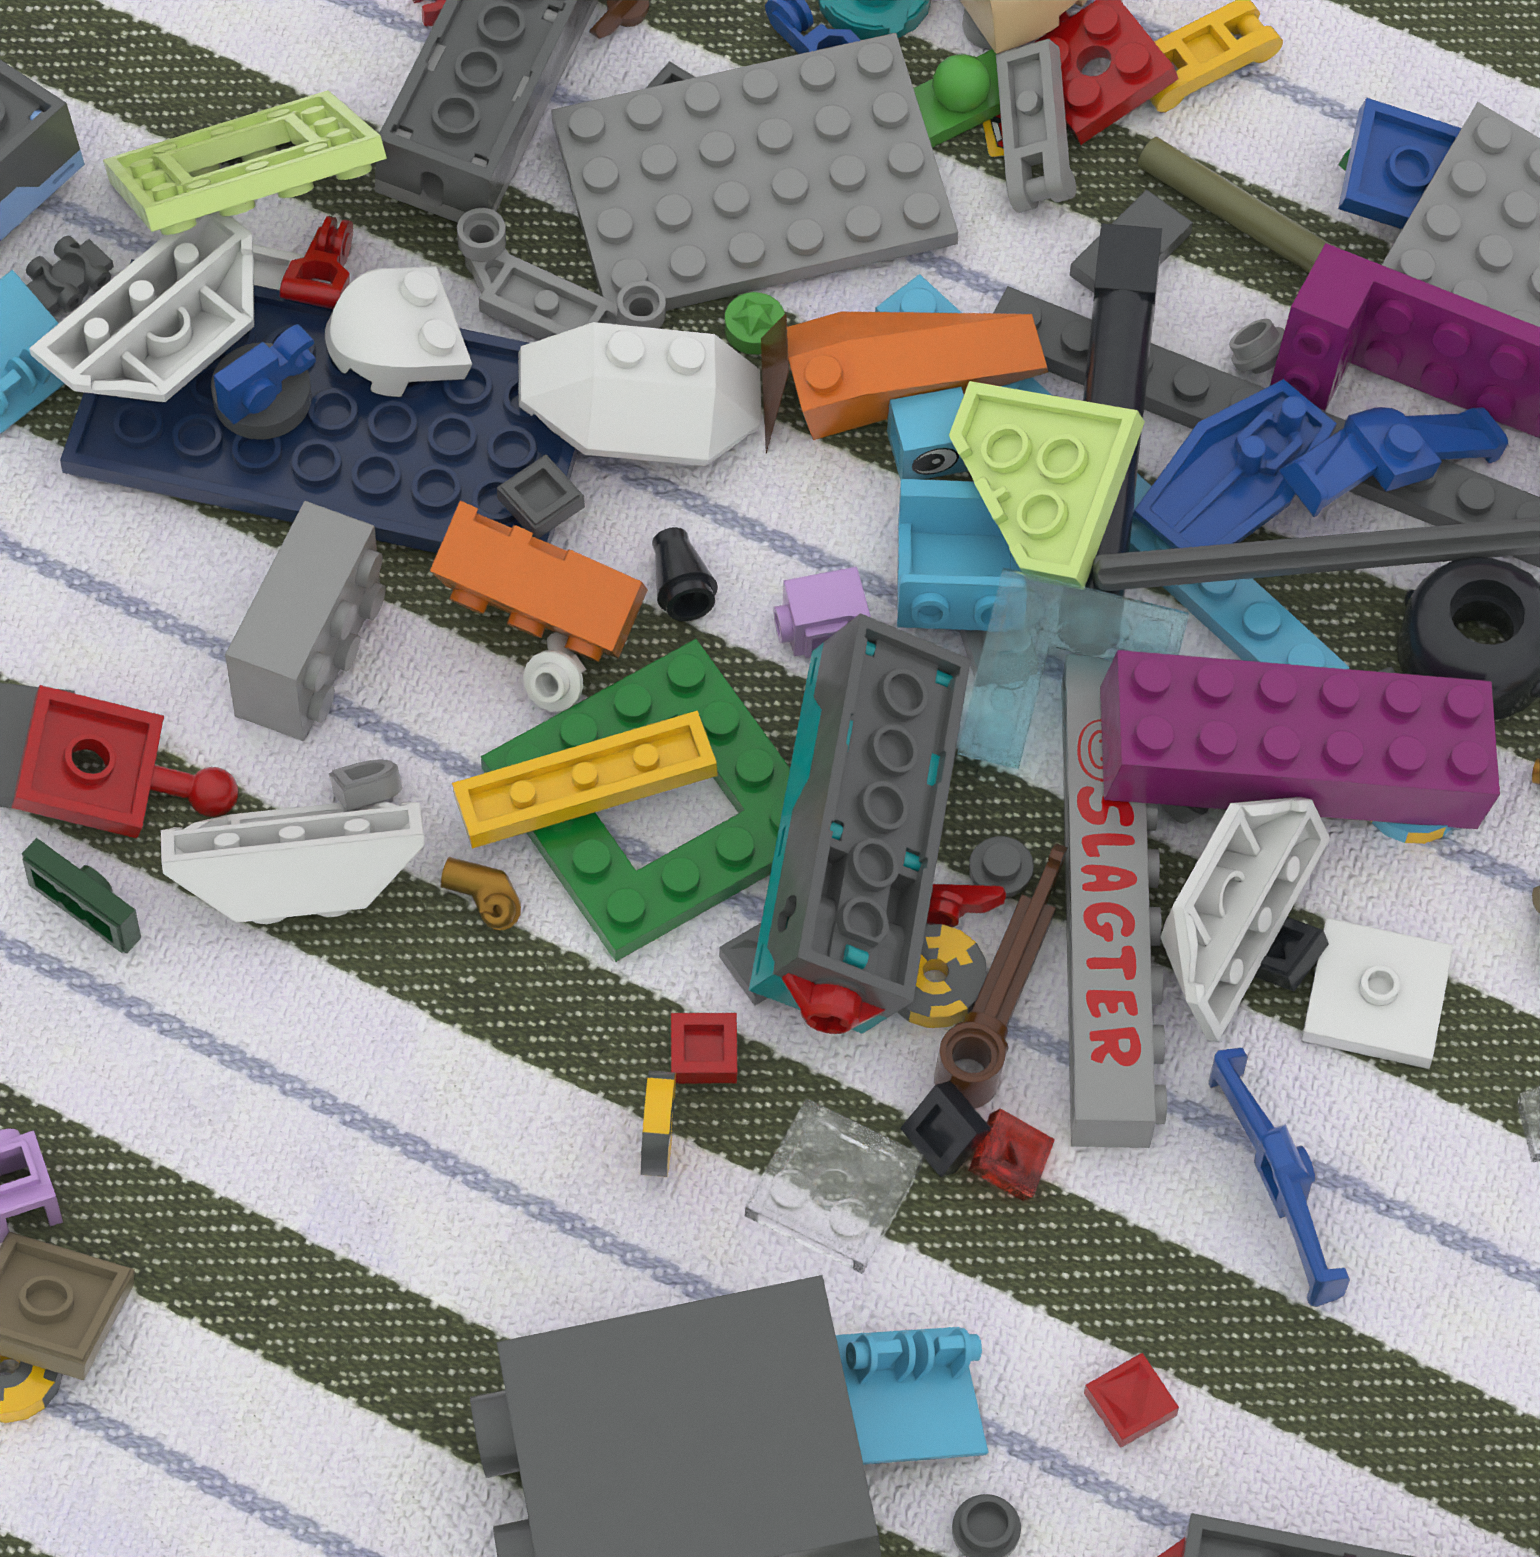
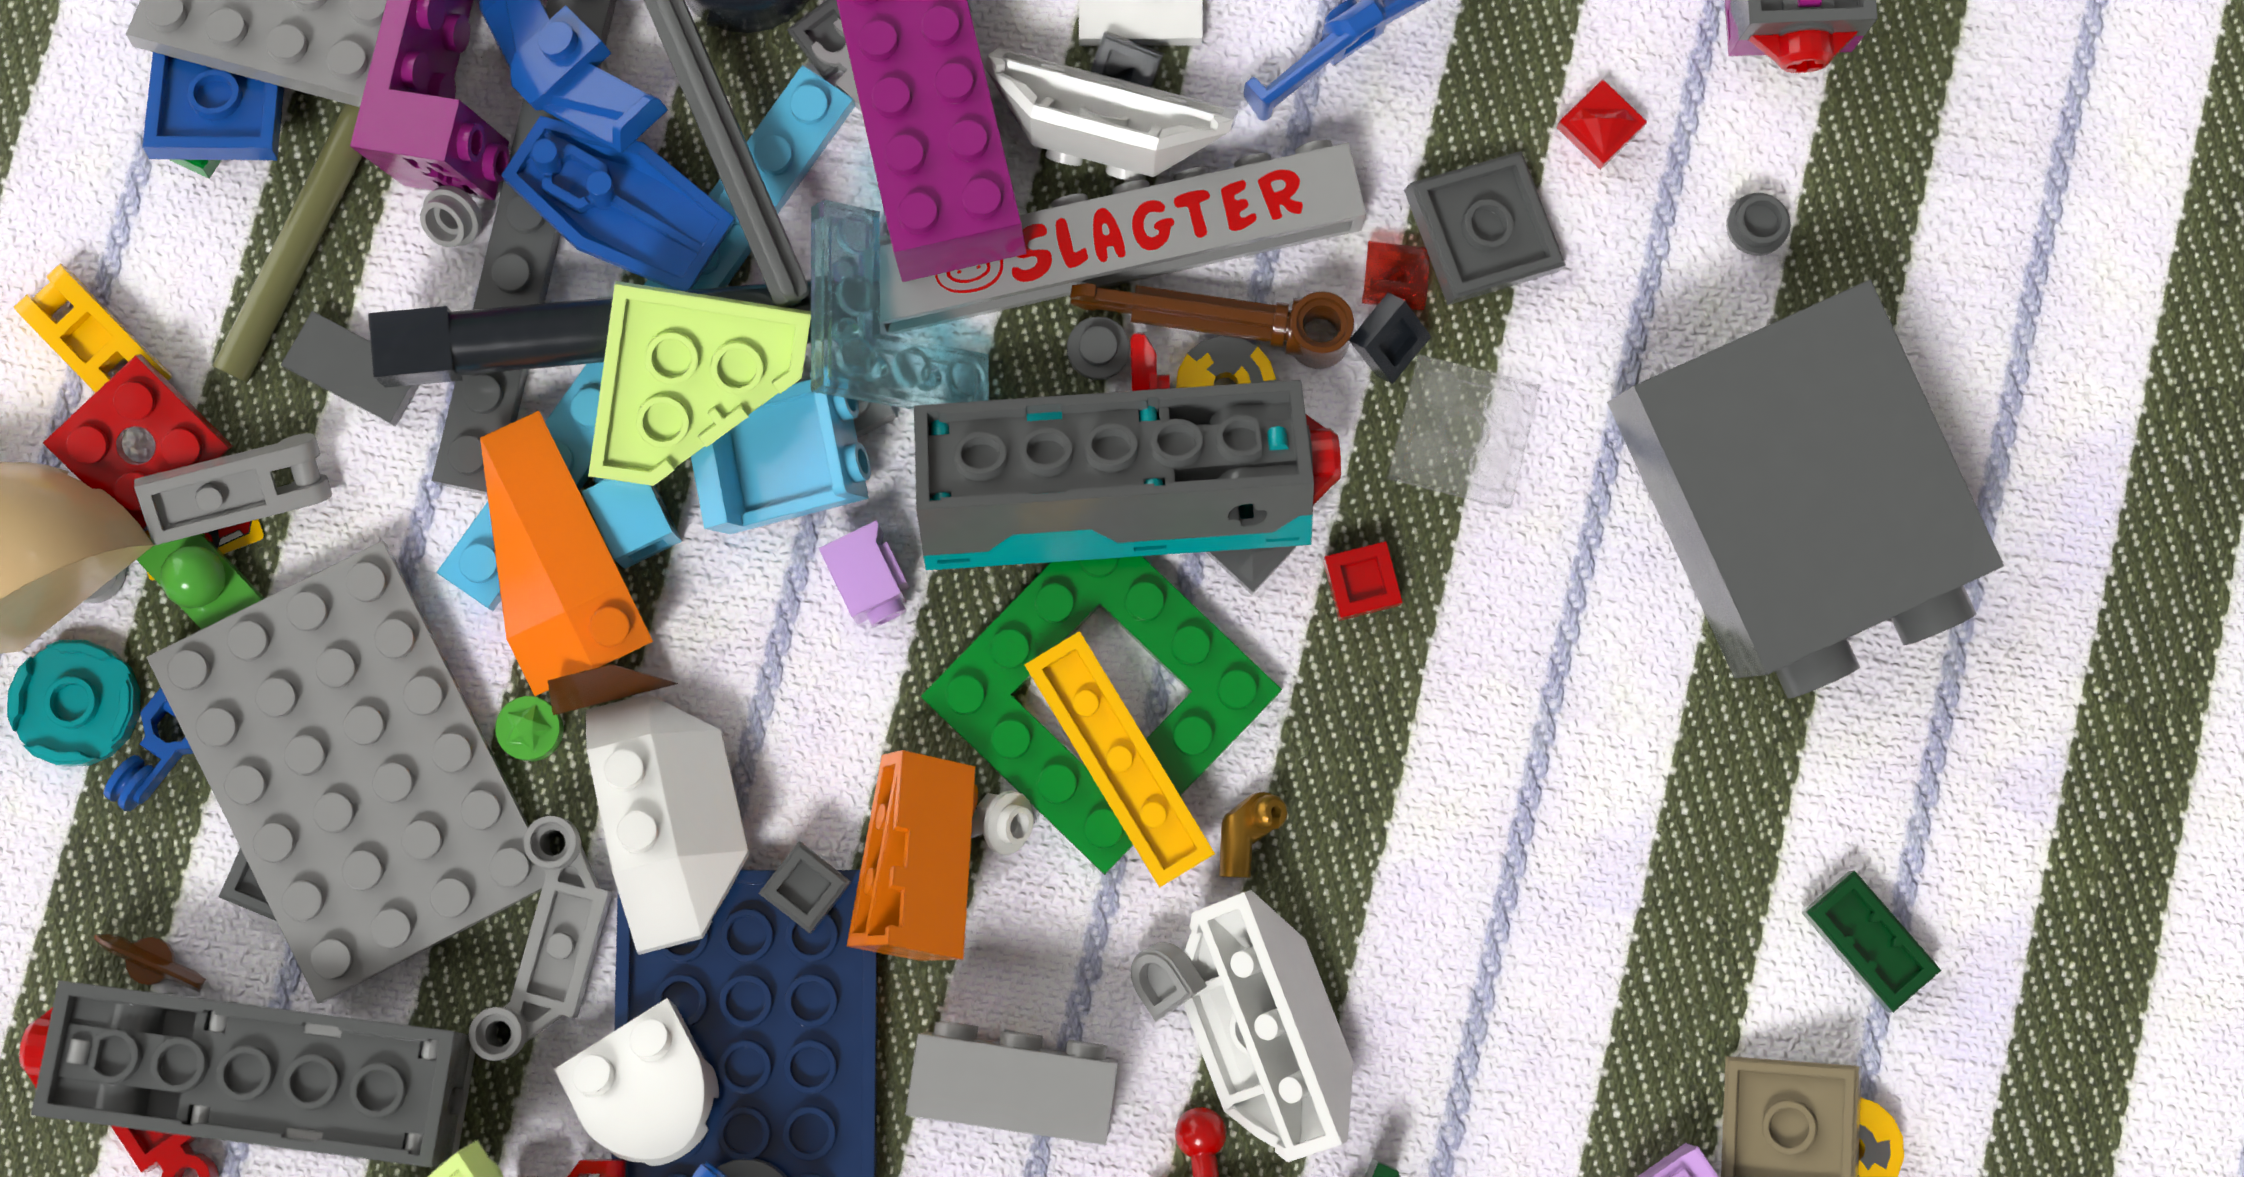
camera: 100 degrees left, 20 degrees up
(204, 1436) = (1871, 941): none -> dark green plate
(658, 1123) = (1464, 598): piece -> none
(682, 579) = (853, 727): black cone -> none
(913, 1394) = (1656, 311): medium azure hinge -> none
(1043, 1251) = (1484, 227): none -> dark grey tile

